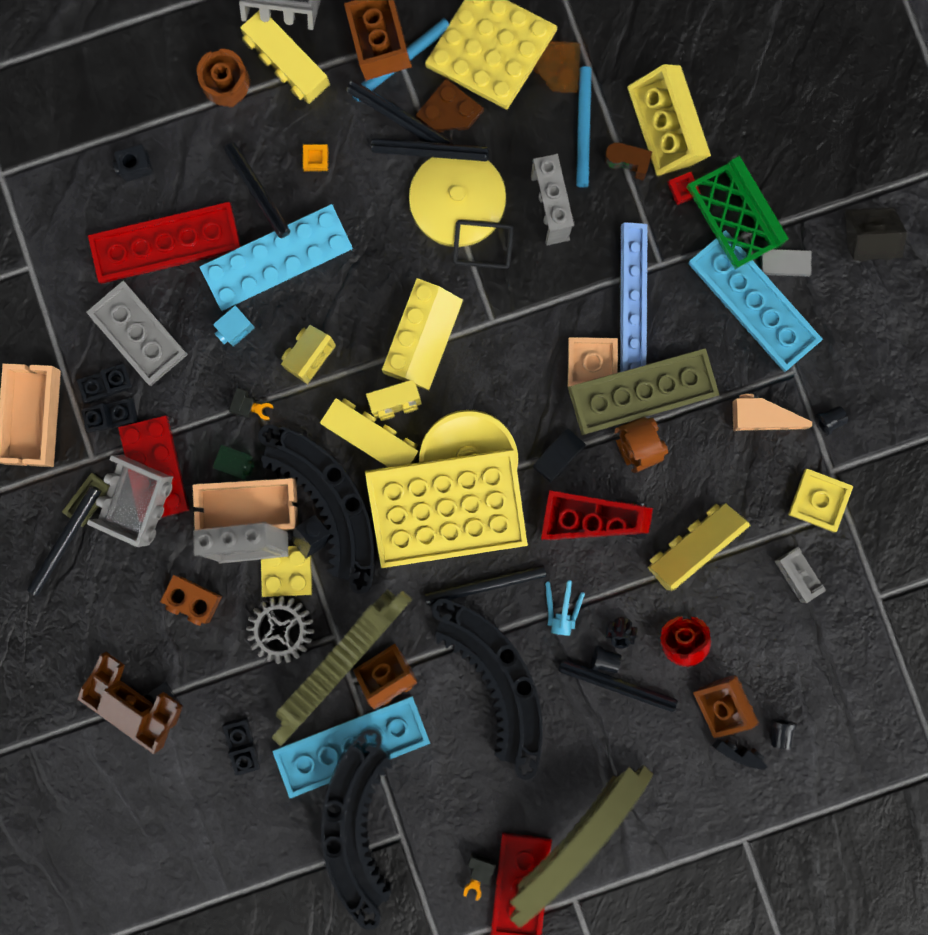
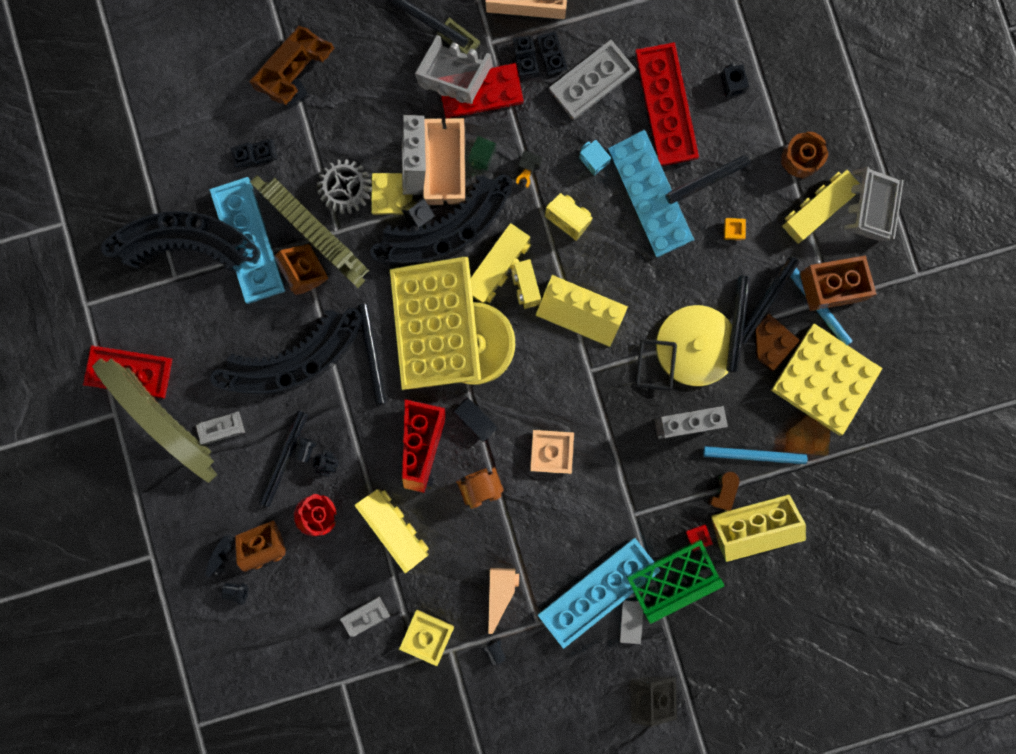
camera: 90 degrees right, 0 degrees up
(193, 593) = (377, 118): dark orange brick -> none
(481, 871) = (143, 340): pearl dark grey piece -> none
(562, 623) = (336, 415): medium azure plant -> none
(585, 765) = (220, 428): none -> light grey hinge
(633, 296) = (587, 488): light blue plate -> none
(643, 391) = (524, 492): olive plate -> none

